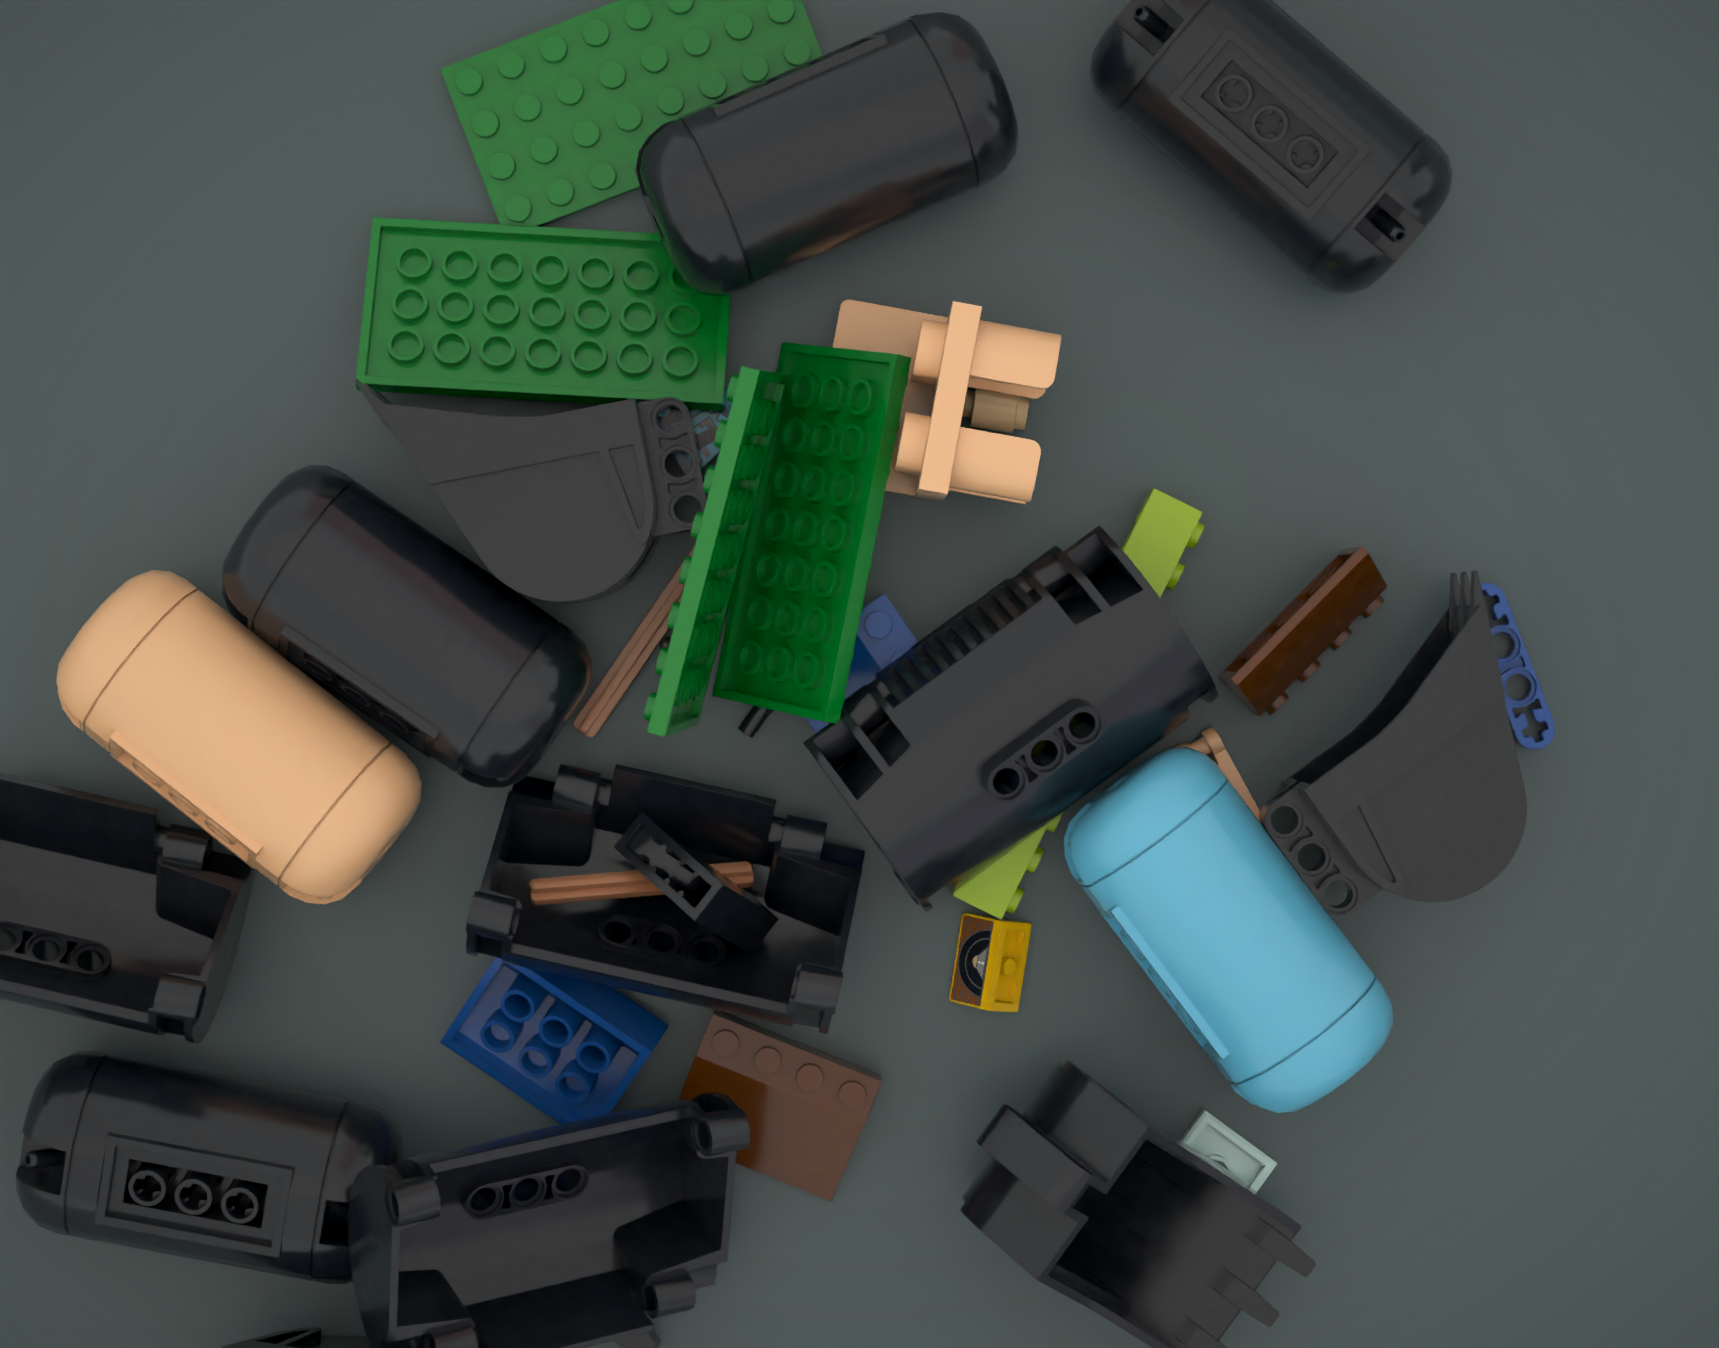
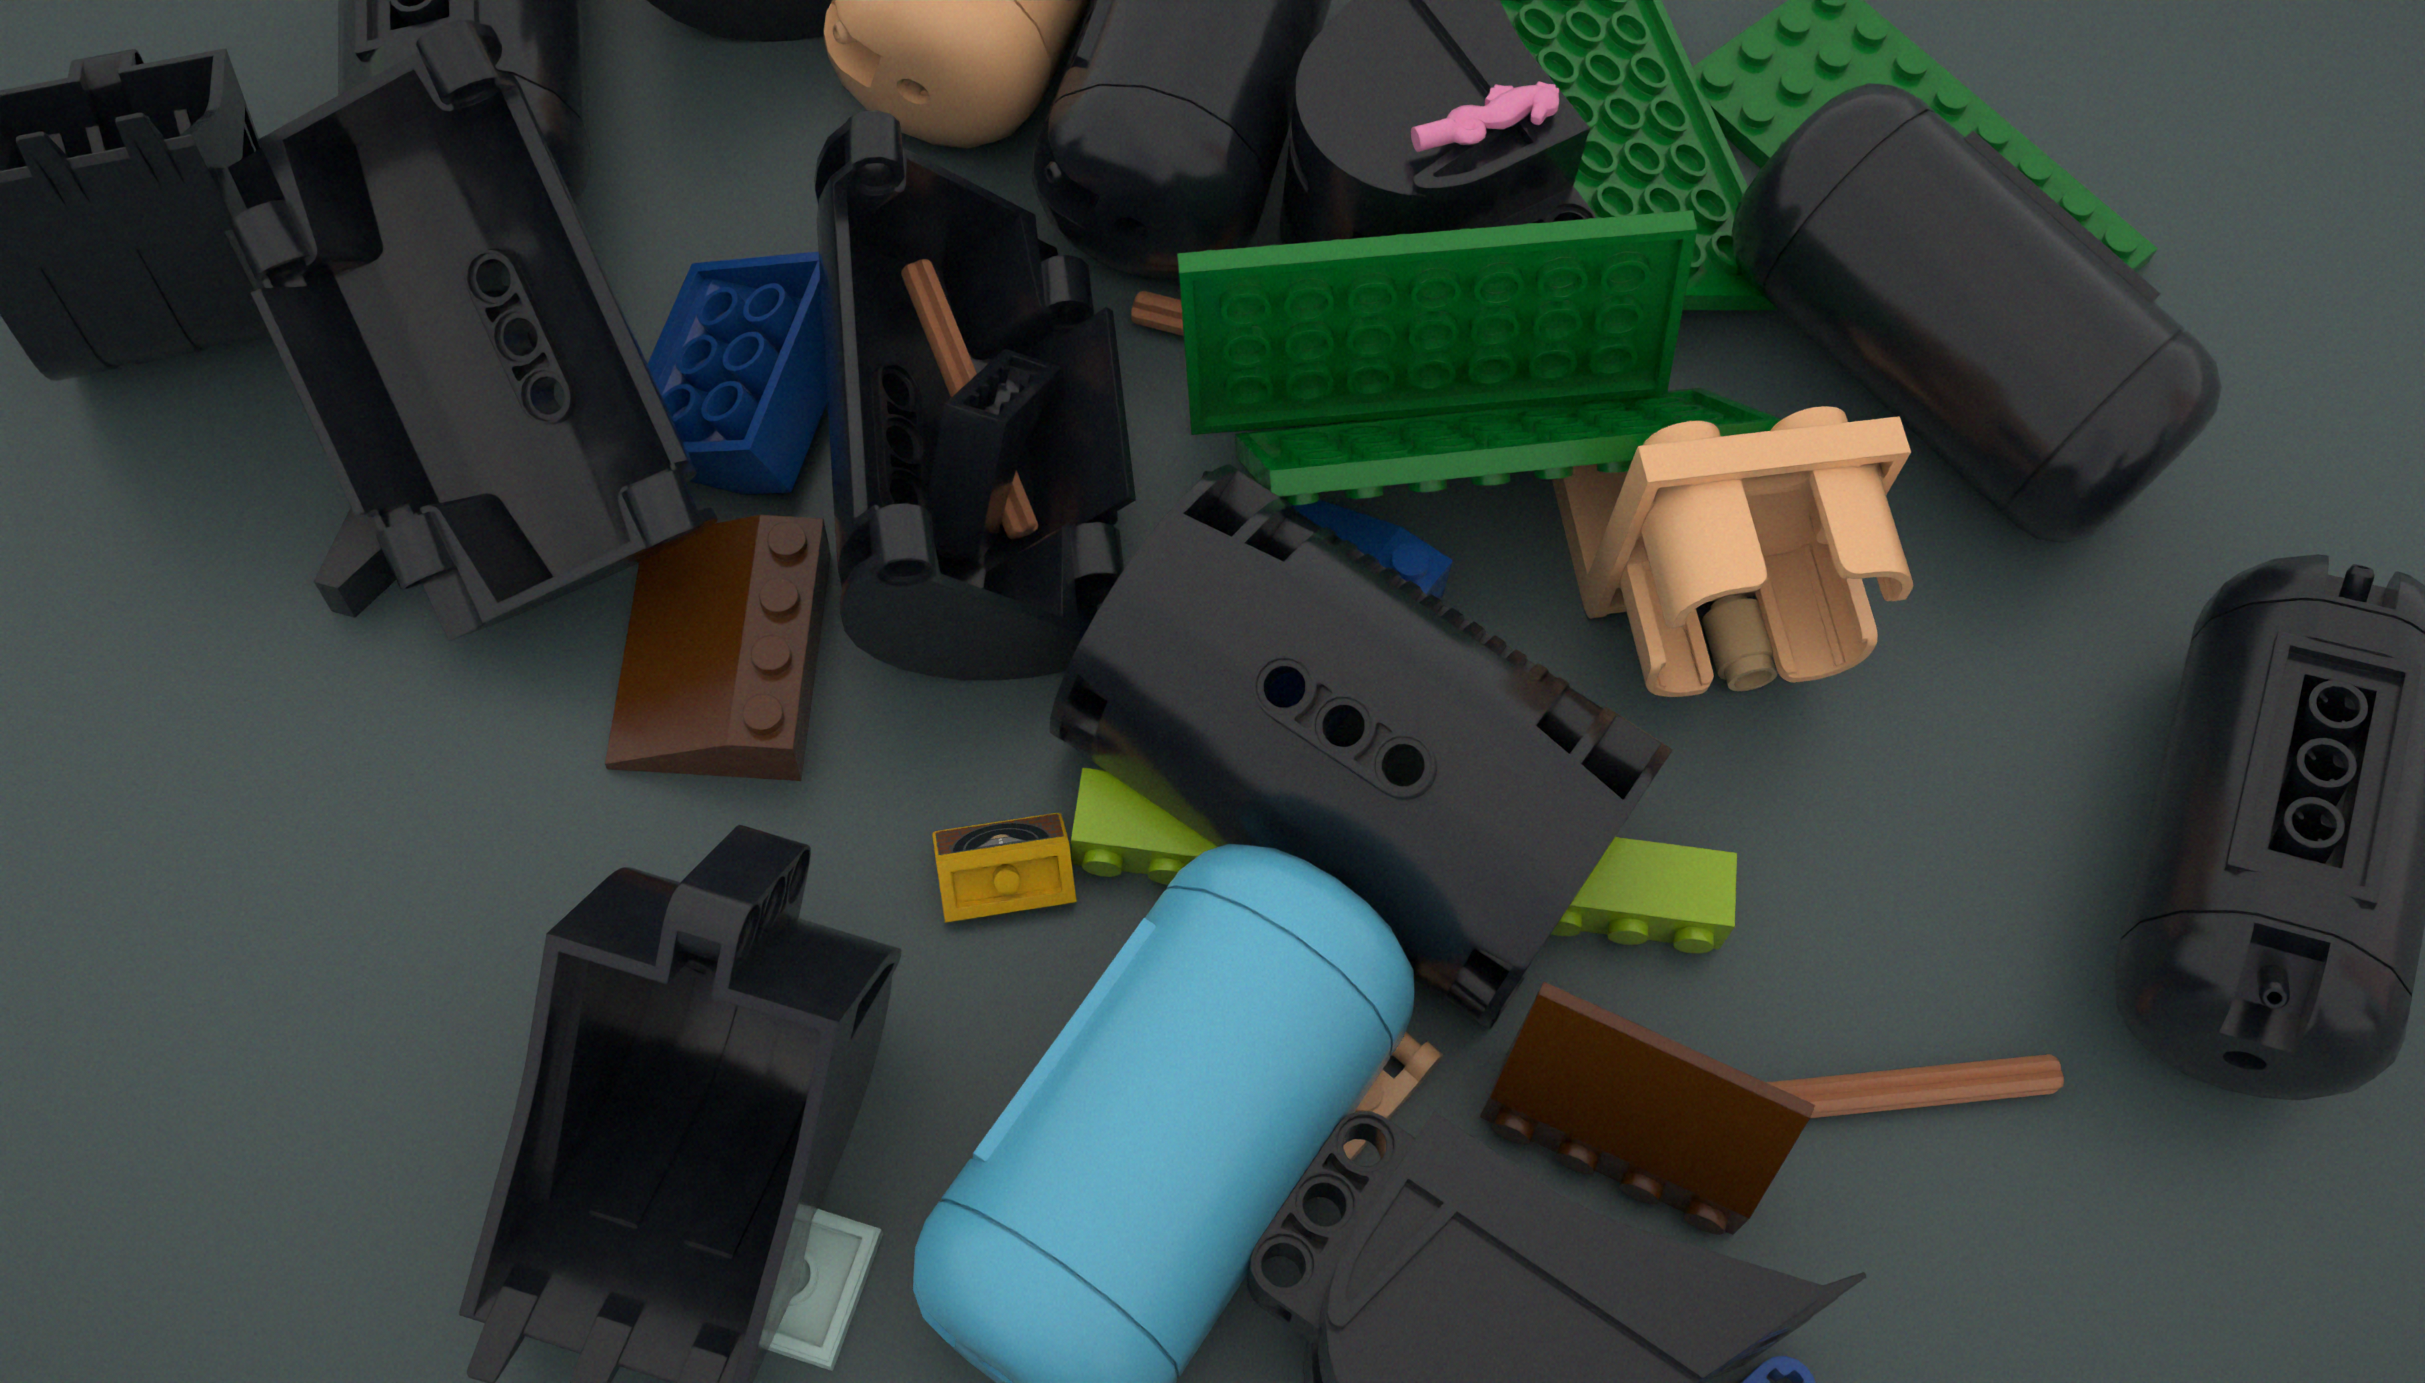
camera: 65 degrees right, 25 degrees down
(602, 454) = (1502, 110): none -> bright pink animal
(1331, 444) = (1928, 1085): none -> nougat axle

